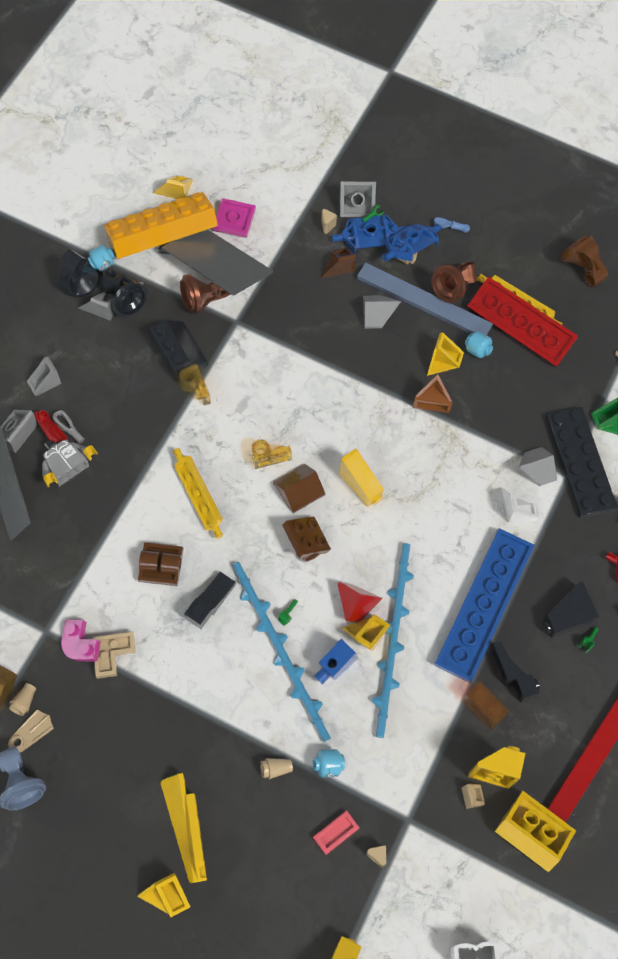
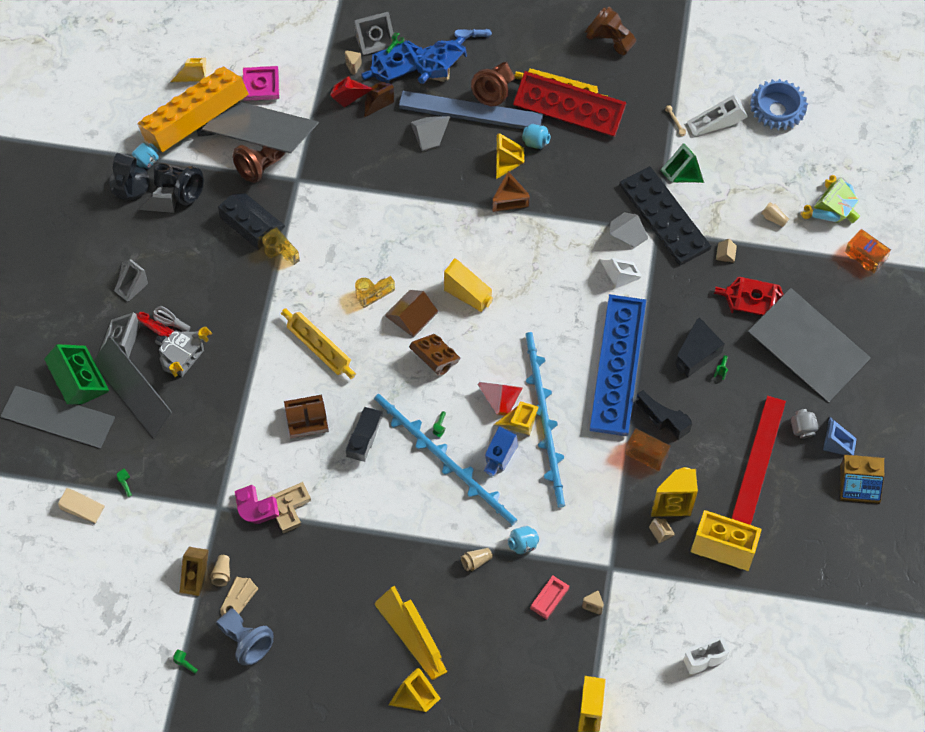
camera: 15 degrees left, 5 degrees down
(313, 249) = (348, 91): none -> red slope

